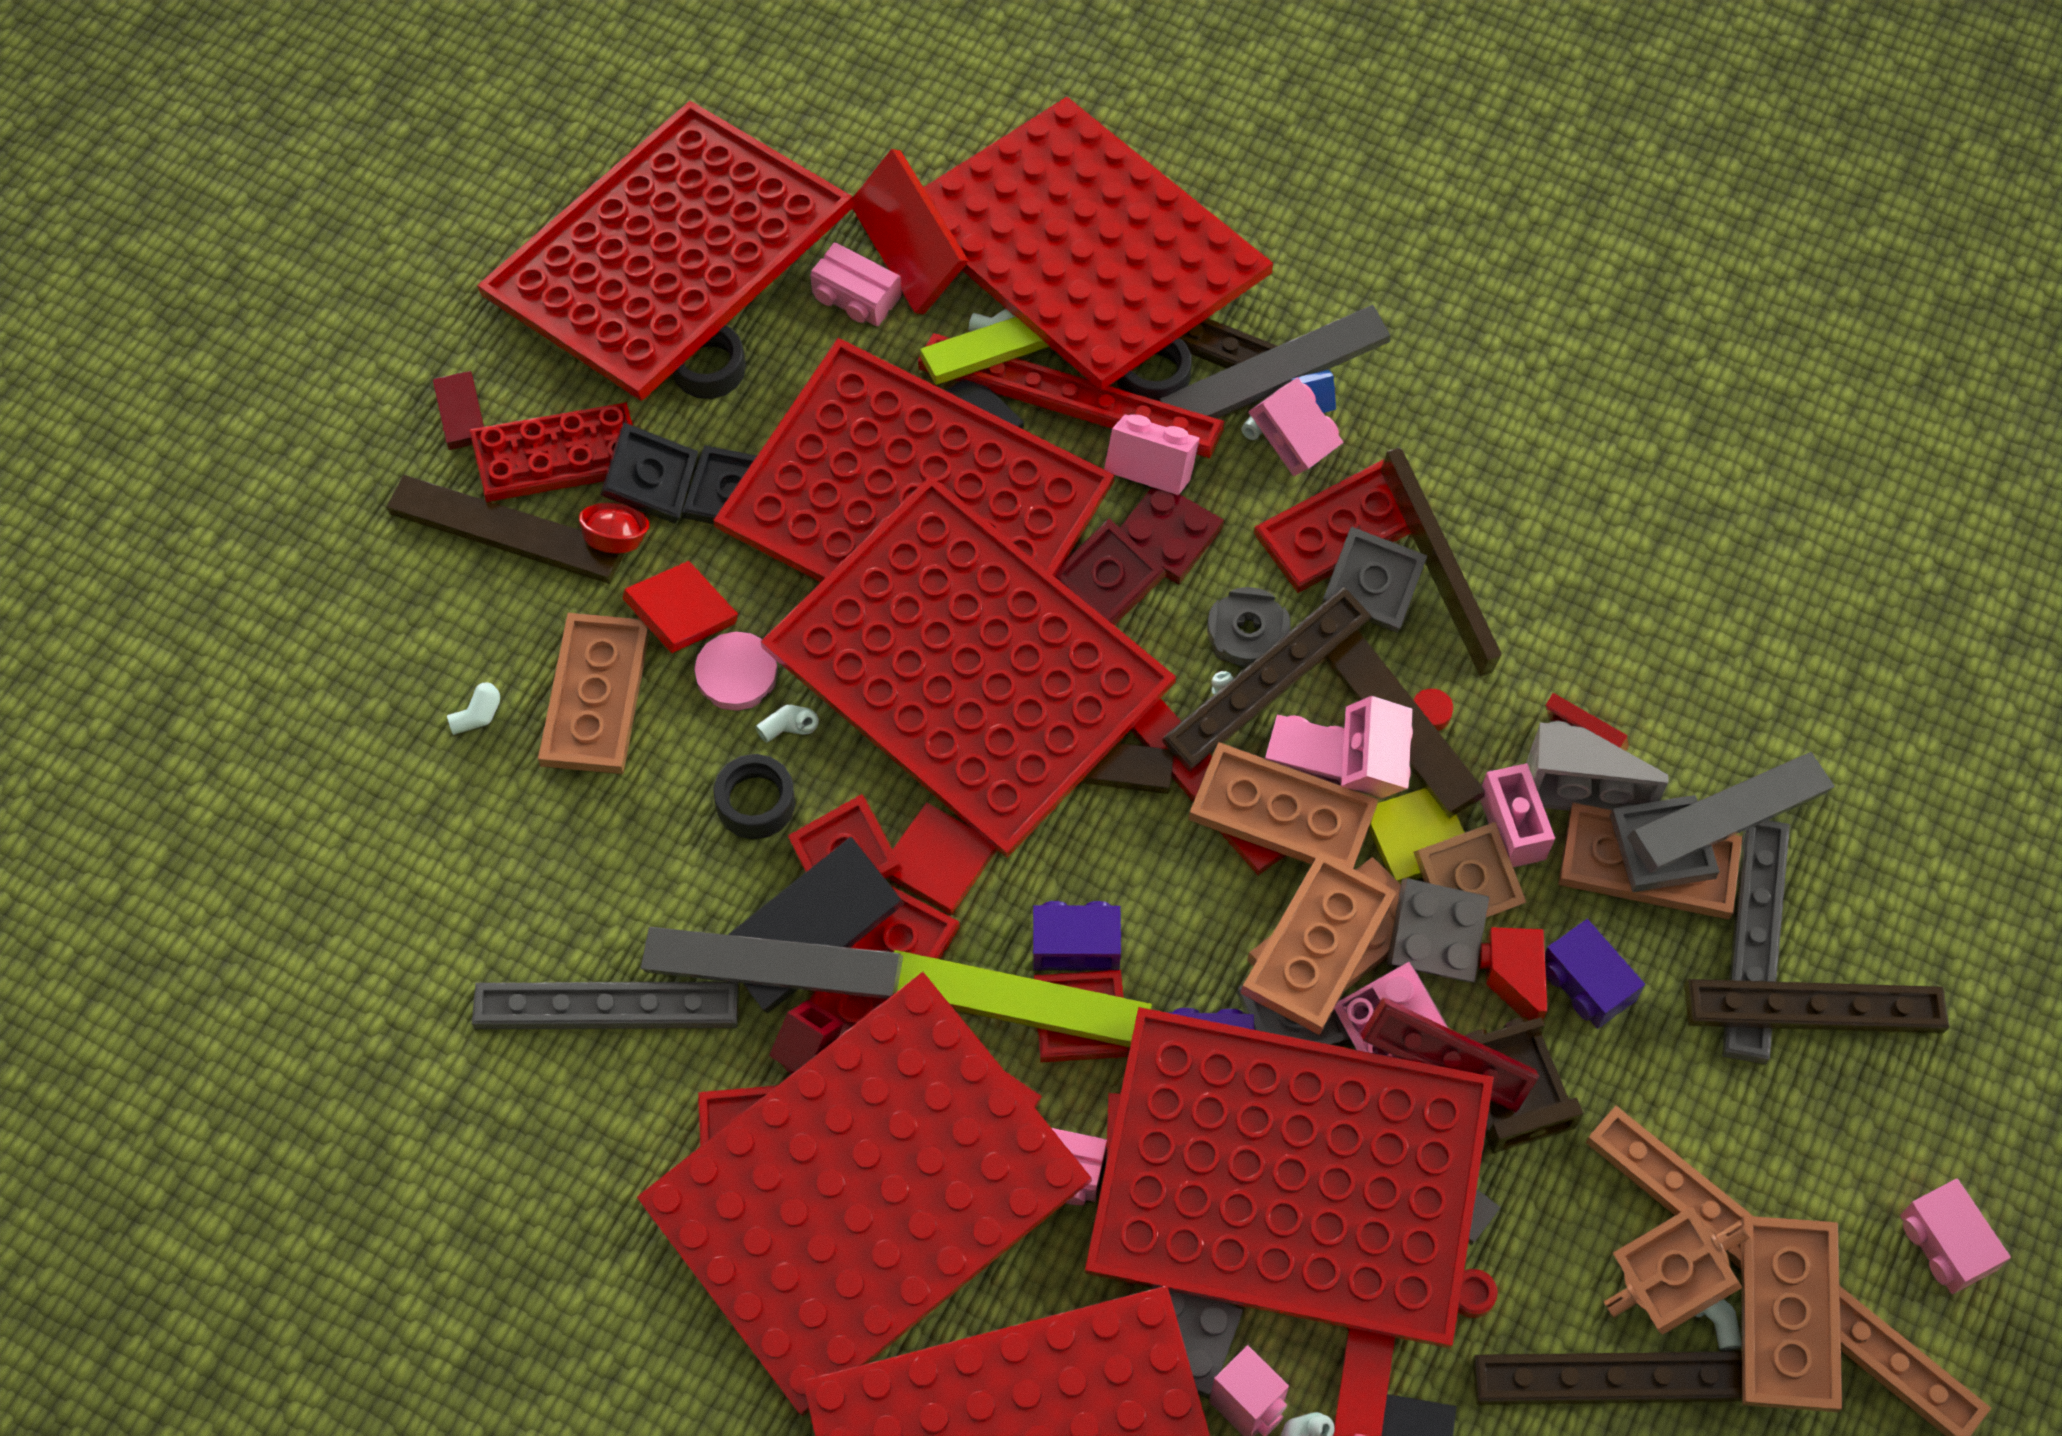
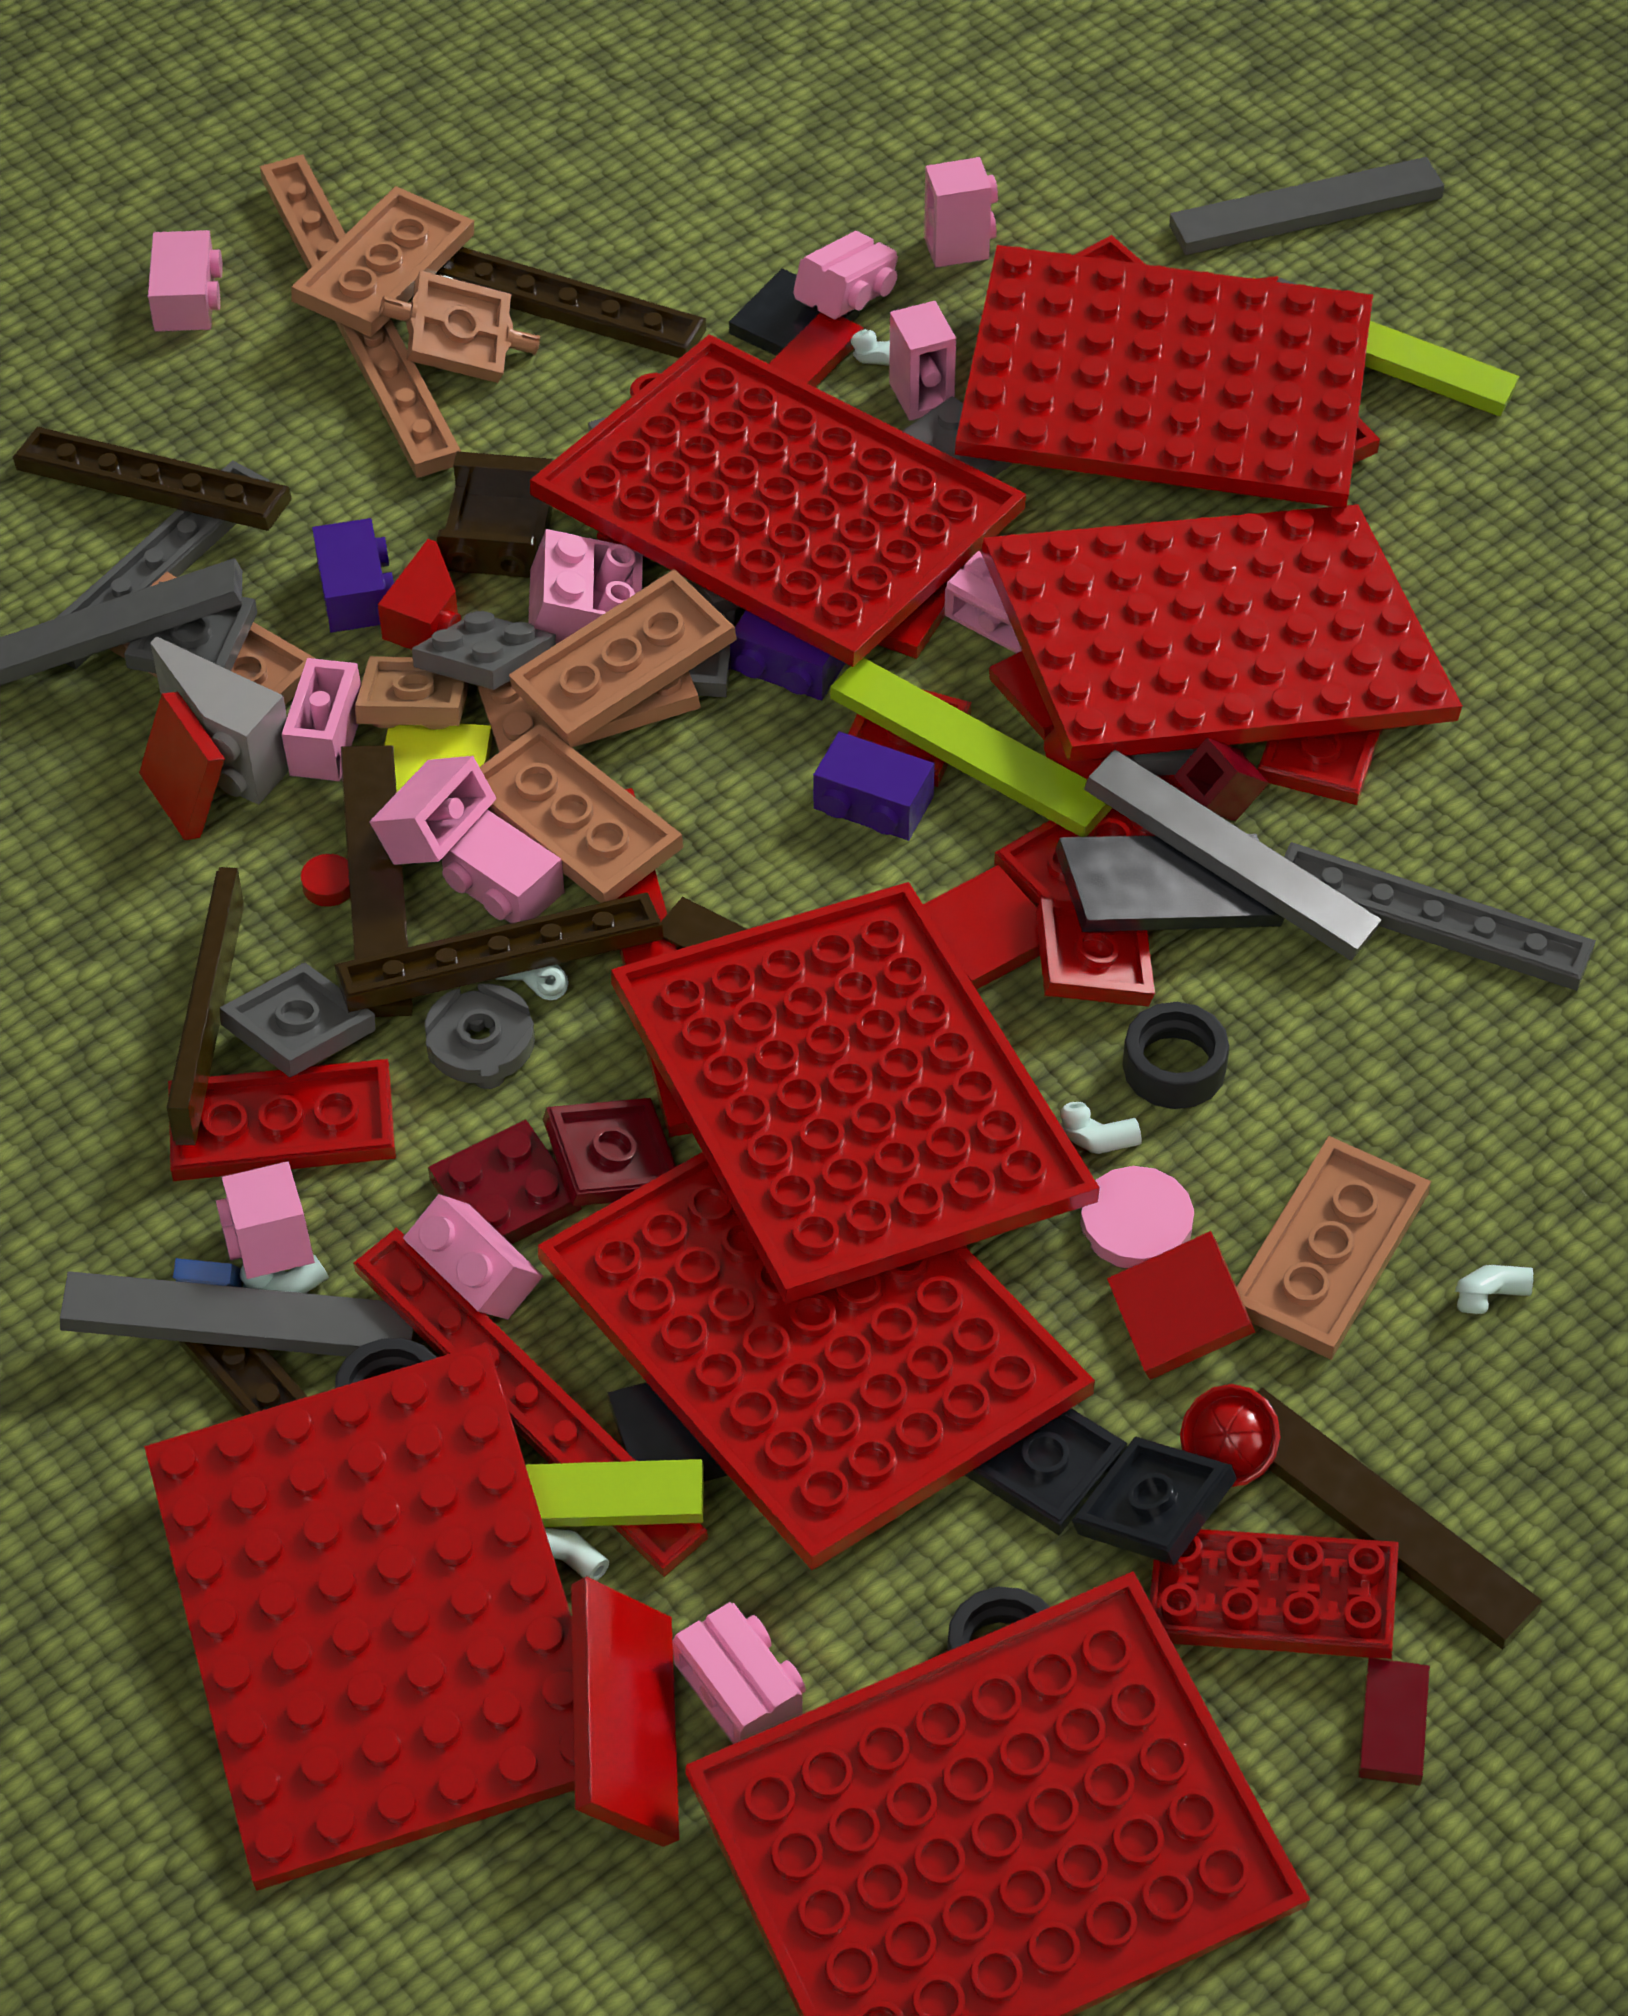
camera: 155 degrees left, 10 degrees down
(1428, 1042) = (558, 519): dark red tile -> none

